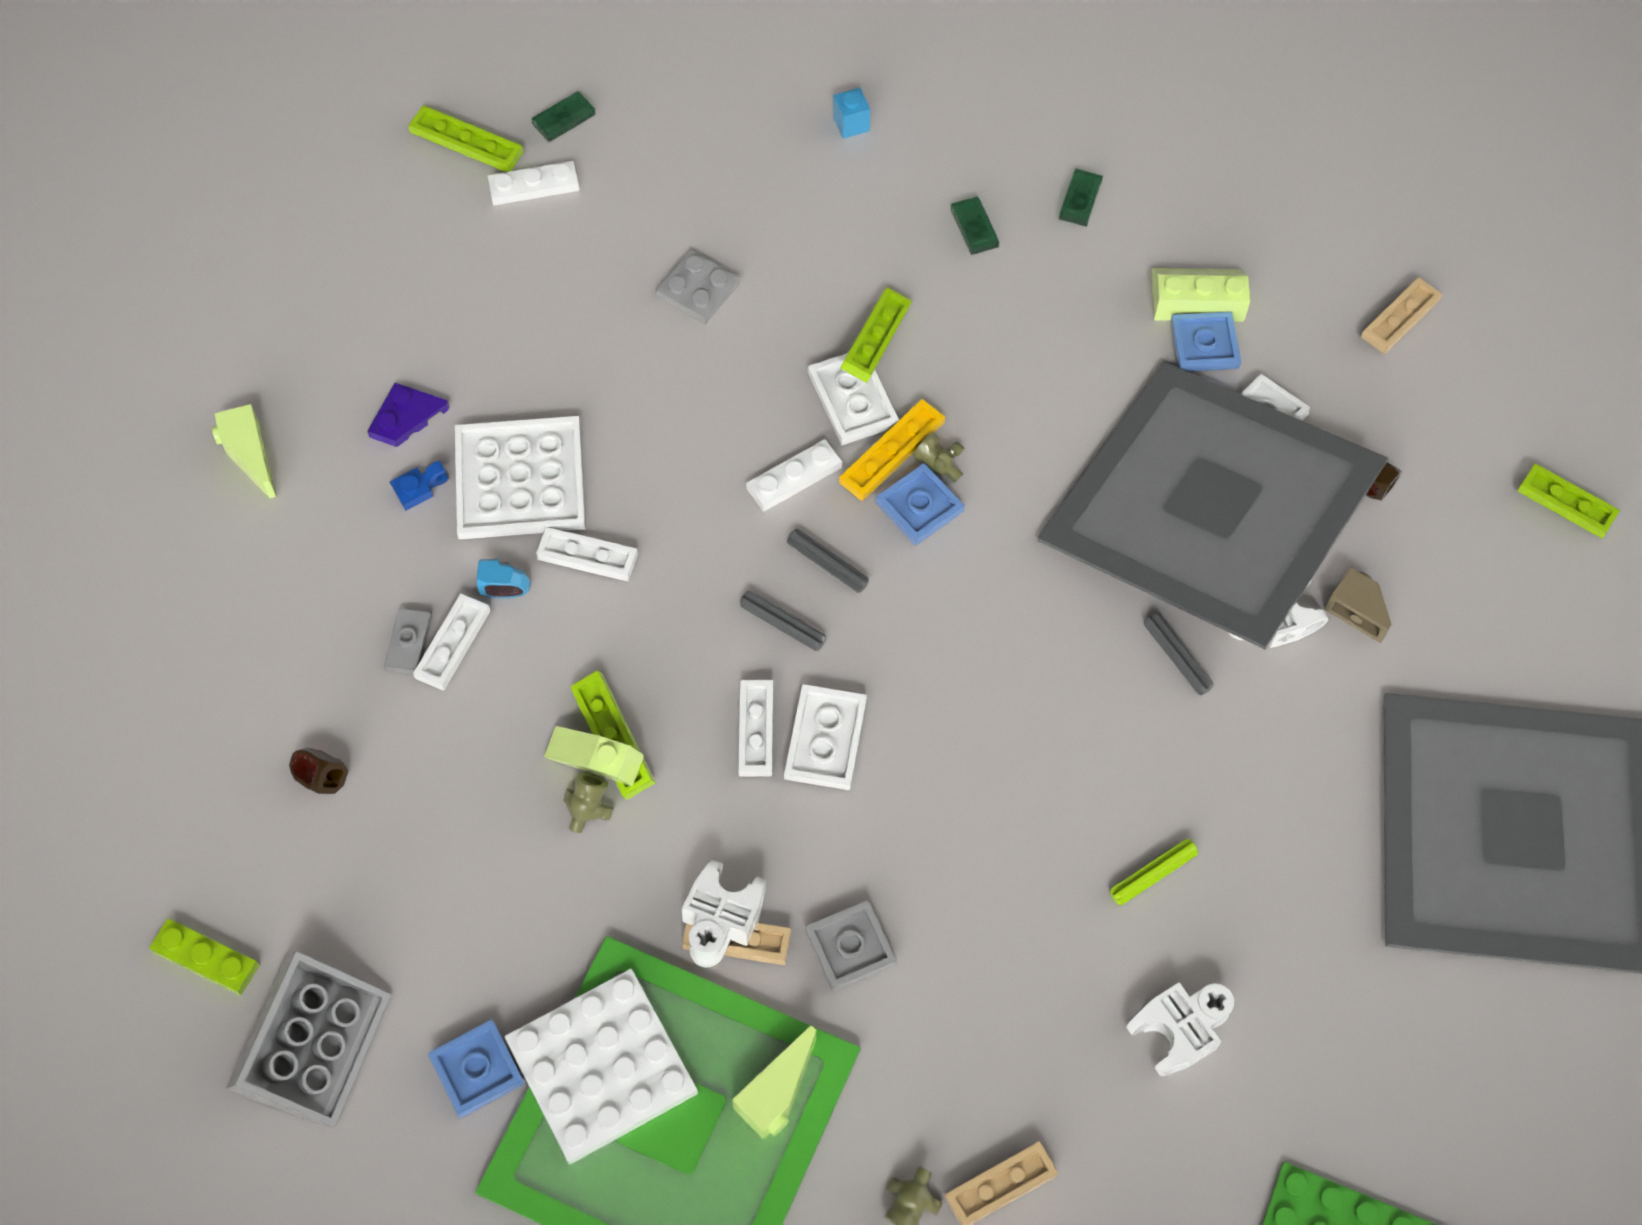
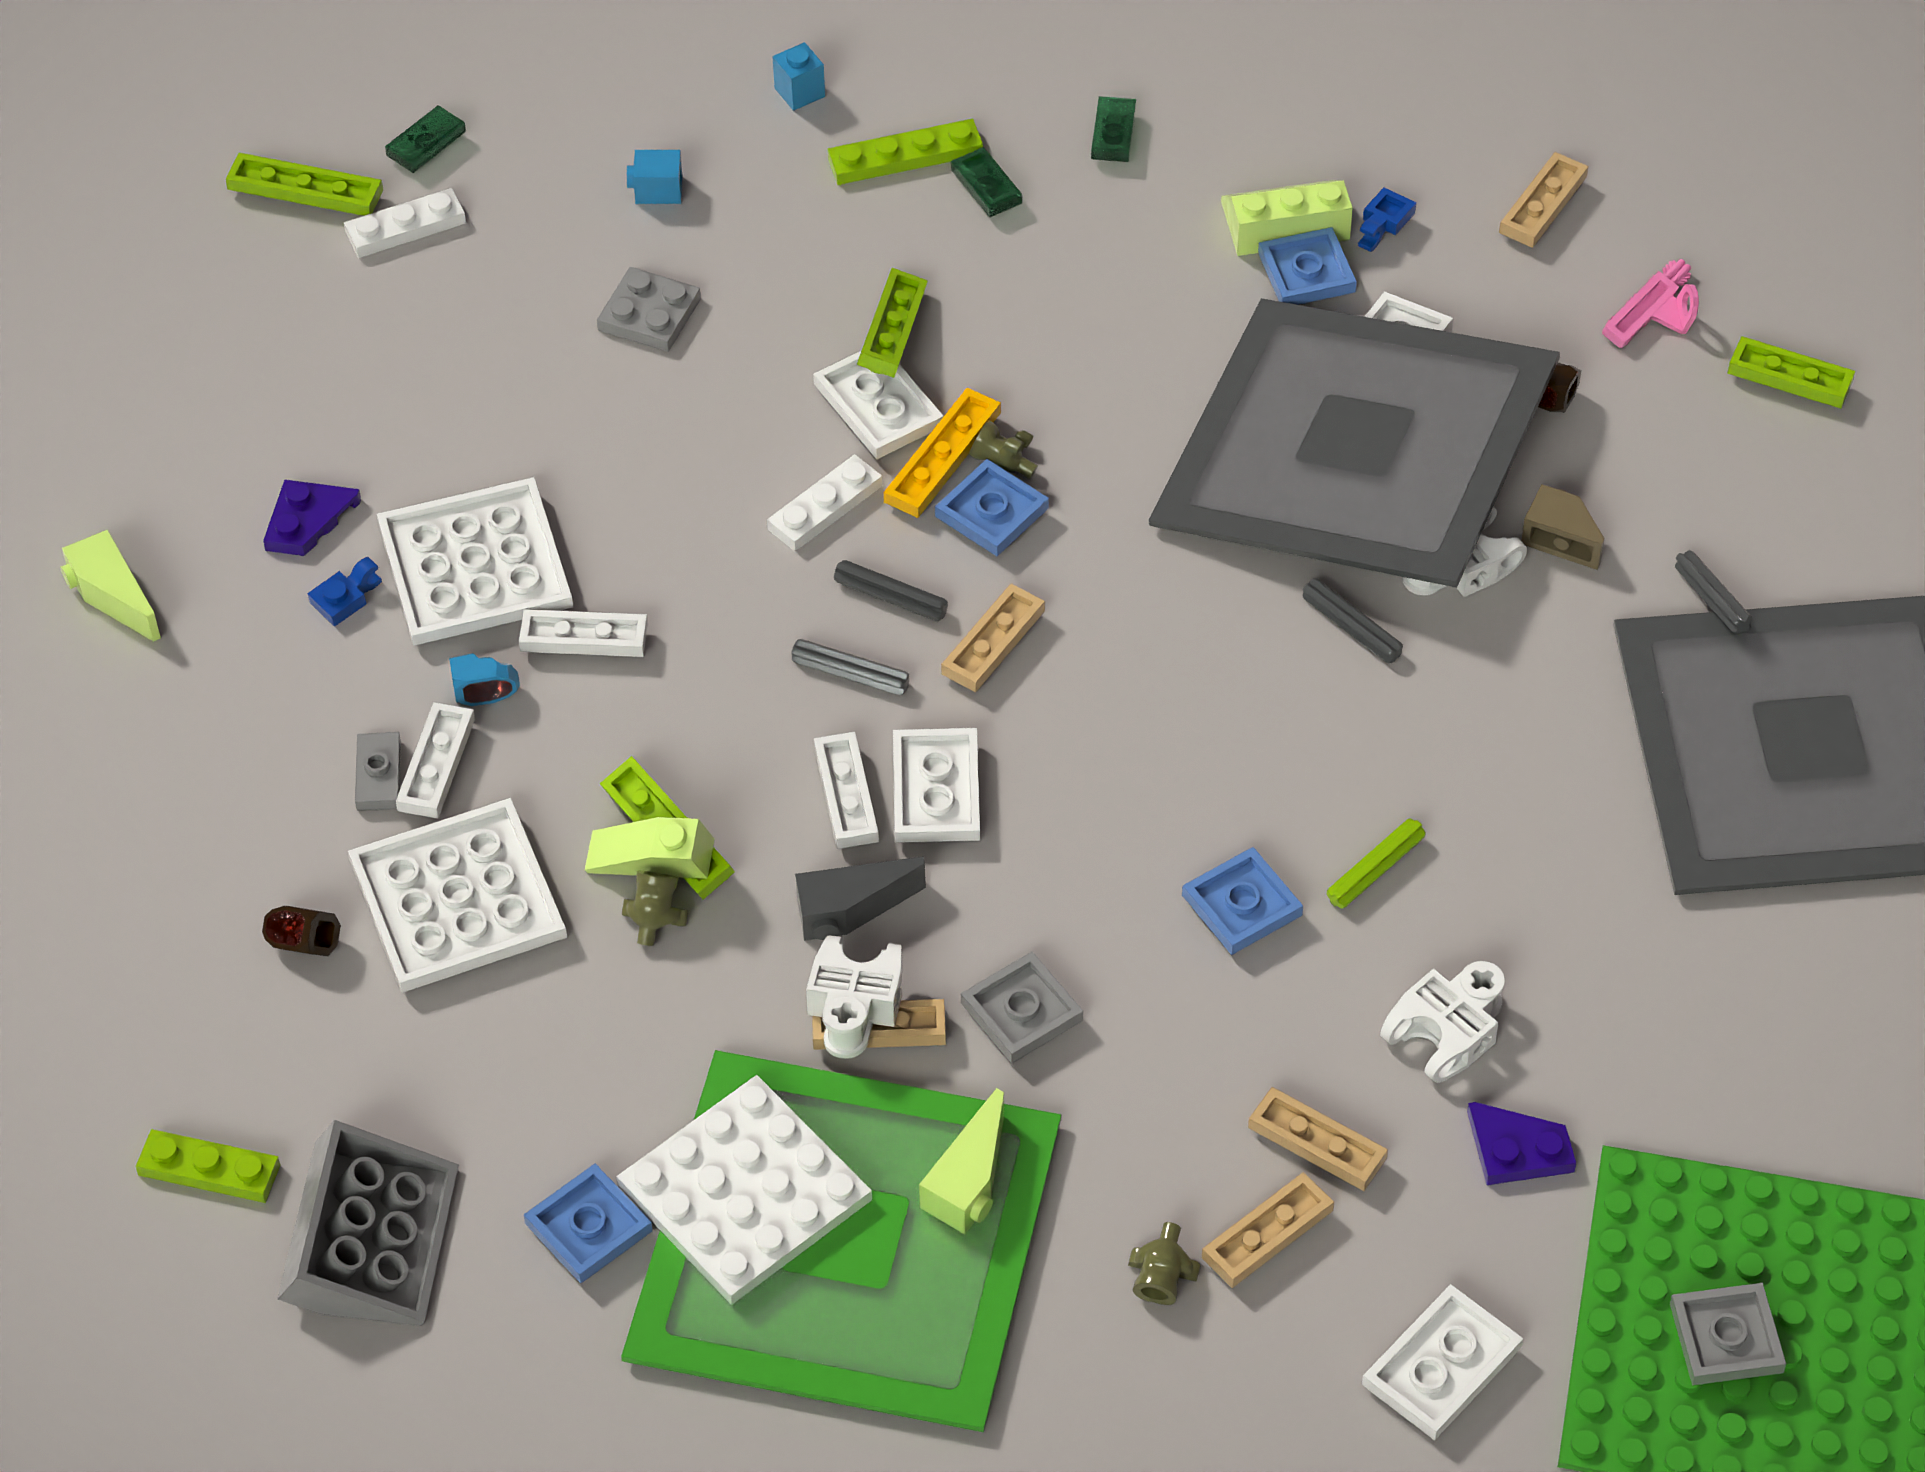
camera: 10 degrees left, 10 degrees down
(441, 761) = (456, 895): none -> white plate
(726, 178) = (656, 176): none -> dark azure brick
(736, 823) = (850, 896): none -> dark grey slope
(896, 617) = (993, 637): none -> tan plate
(918, 188) = (903, 151): none -> lime plate
(1042, 885) = (1242, 900): none -> medium blue plate
(1057, 1111) = (1317, 1138): none -> tan plate
(1216, 1147) = (1518, 1145): none -> dark purple wing
(1275, 306) = (1384, 213): none -> blue plate
(1469, 685) = (1713, 592): none -> dark grey axle
(1473, 421) = (1657, 303): none -> bright pink piece

